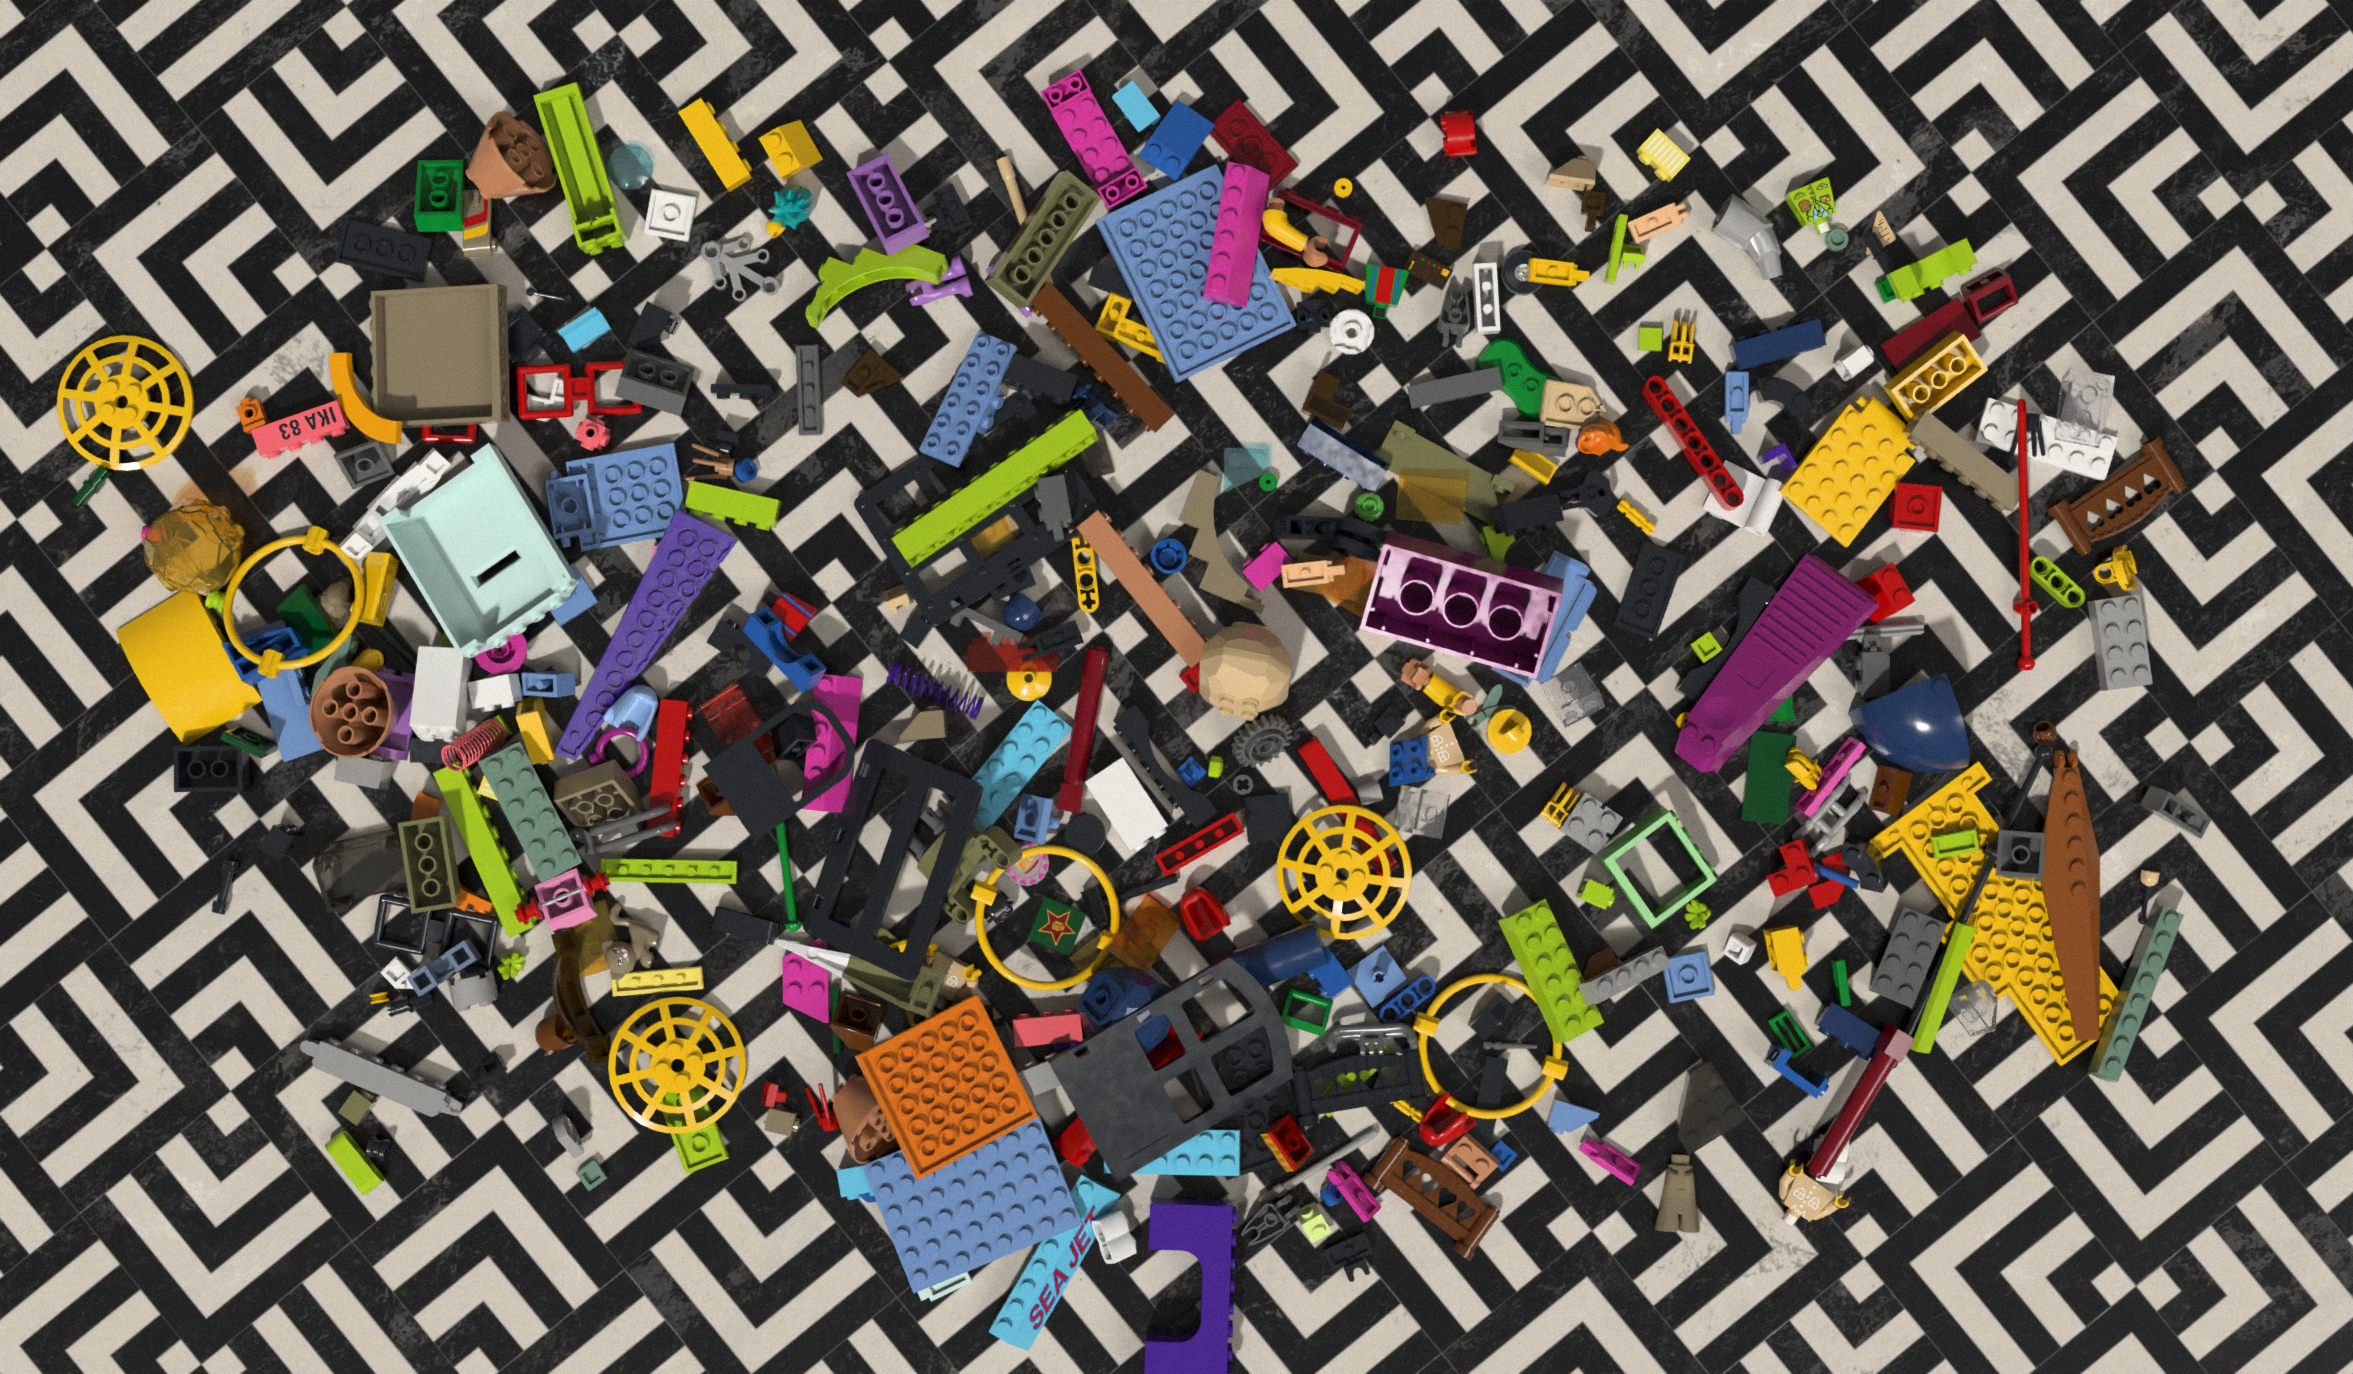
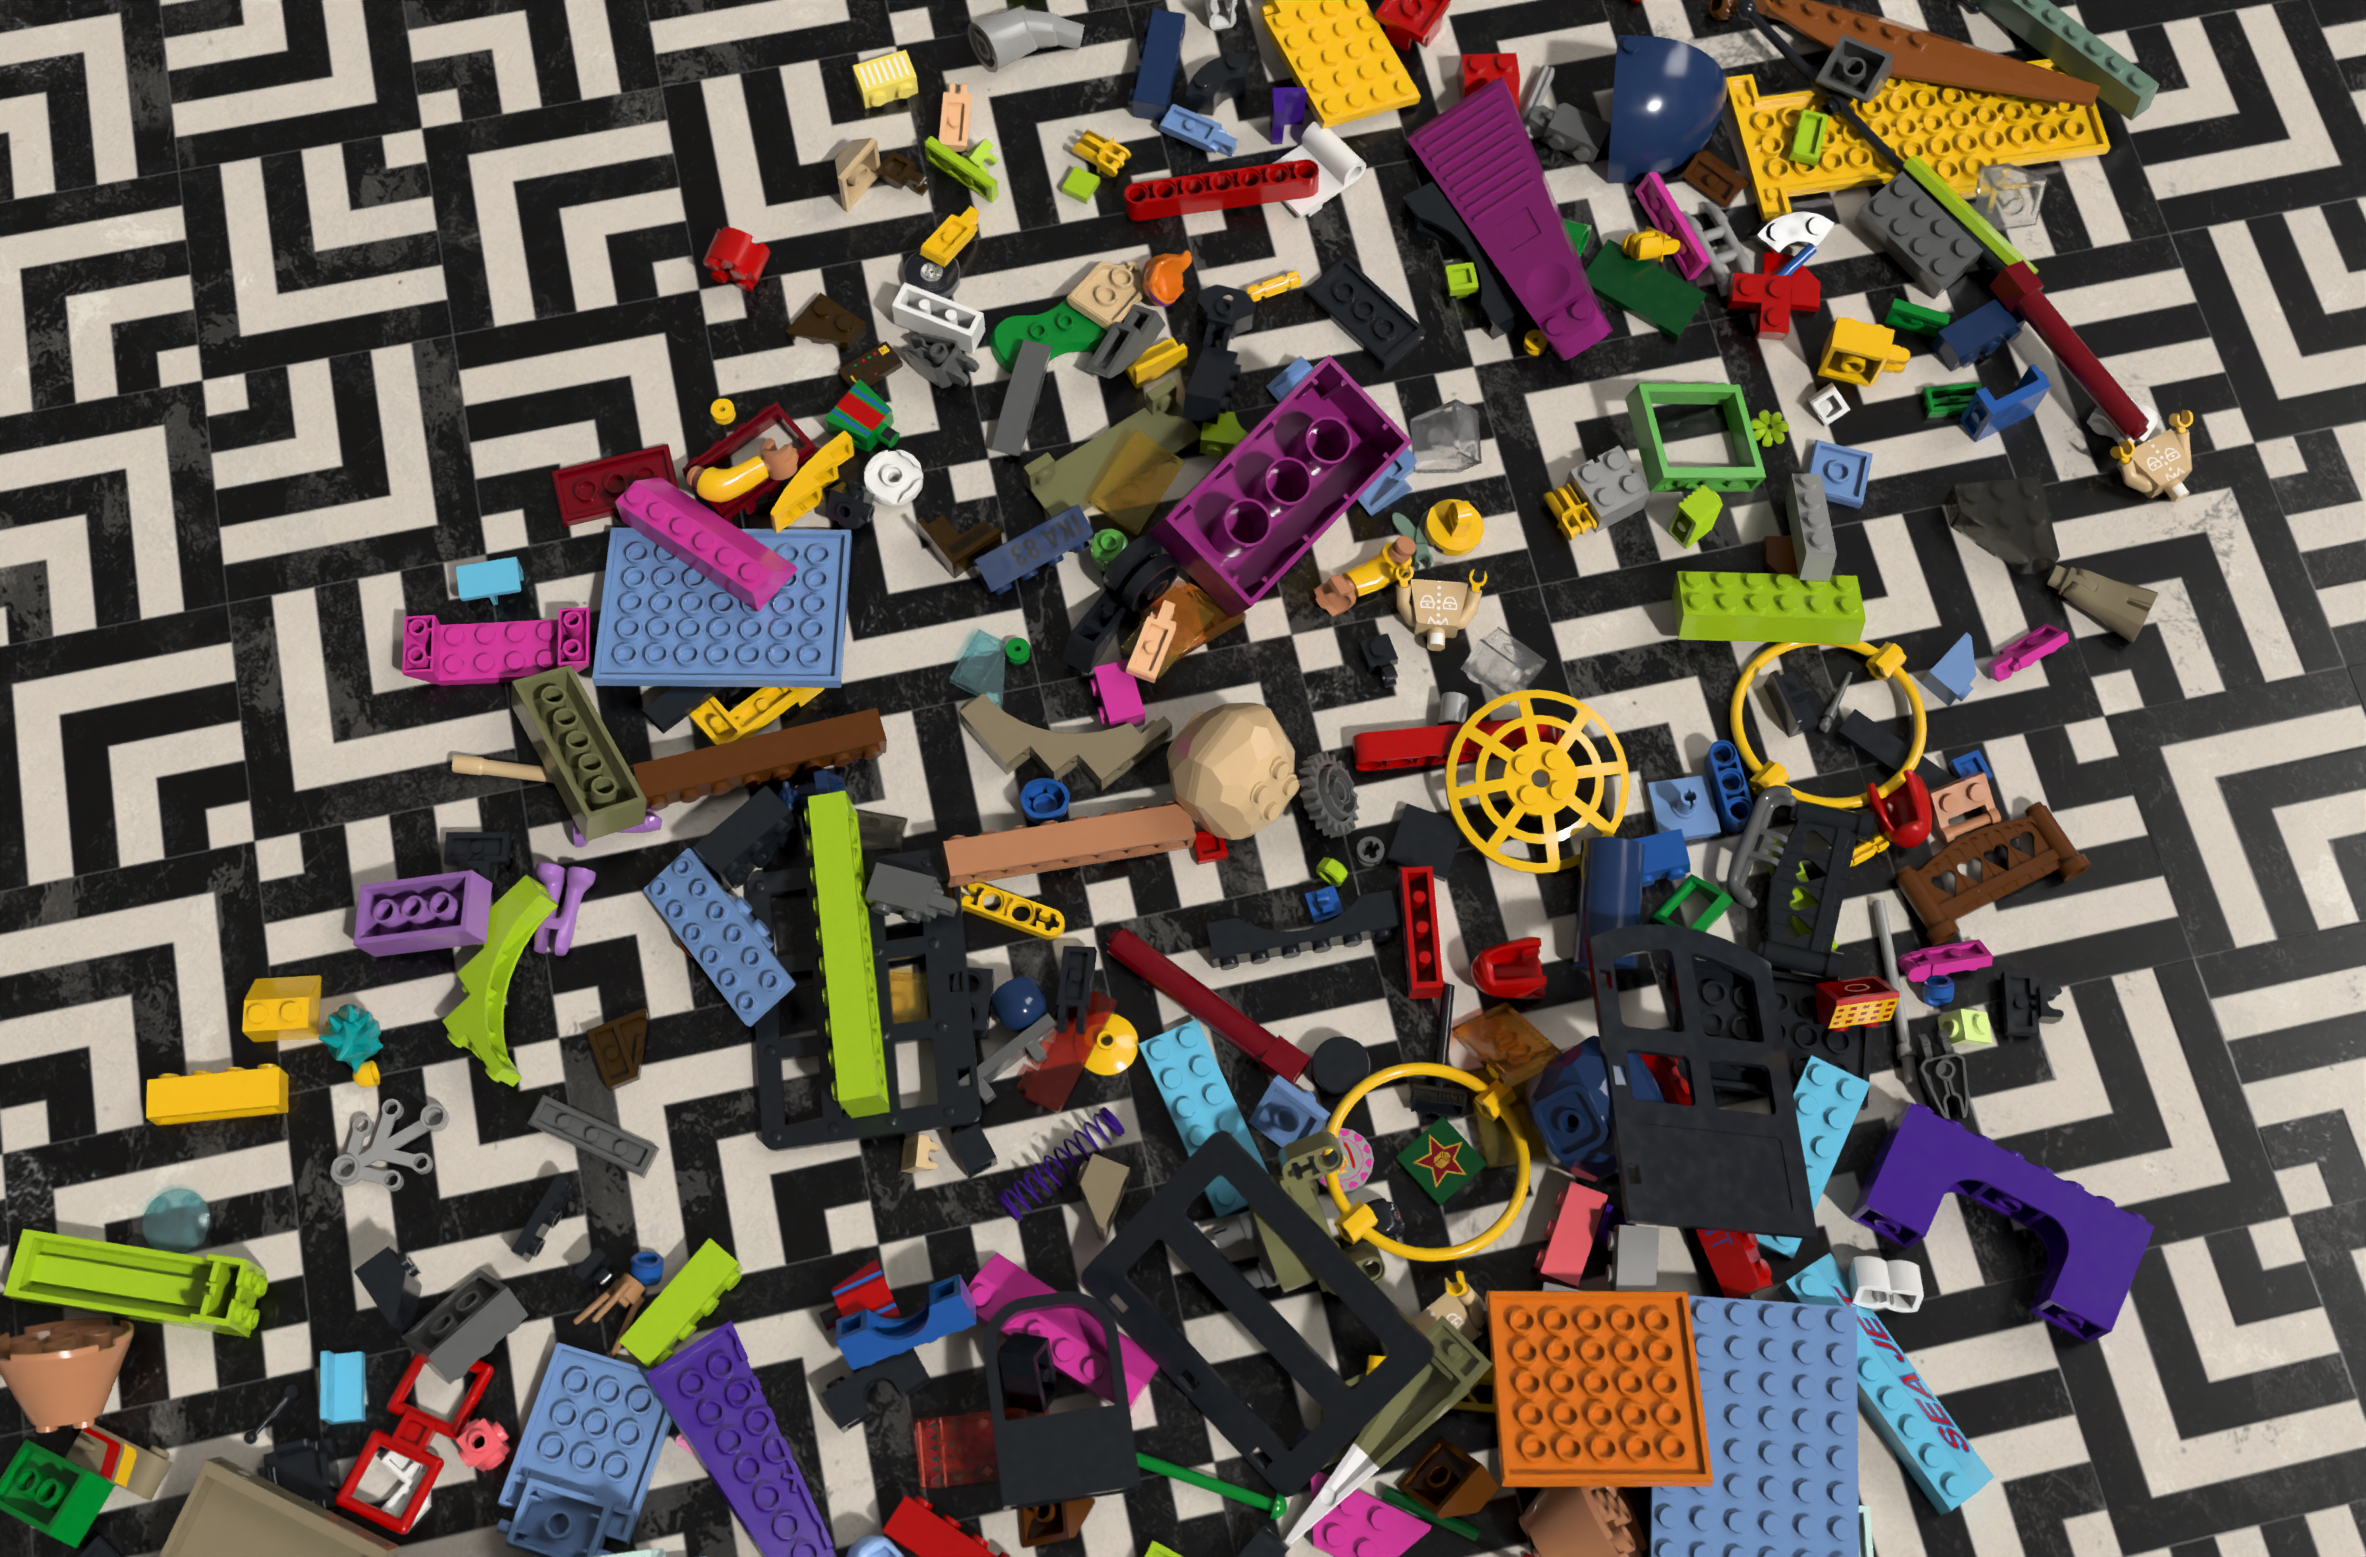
camera: 60 degrees left, 20 degrees down
(670, 215) = (269, 1201): white tile -> none
(1127, 804) = (1328, 992): white brick -> none
(1176, 140) = (558, 558): blue slope -> none
(1409, 762) = (1437, 645): blue hinge -> none

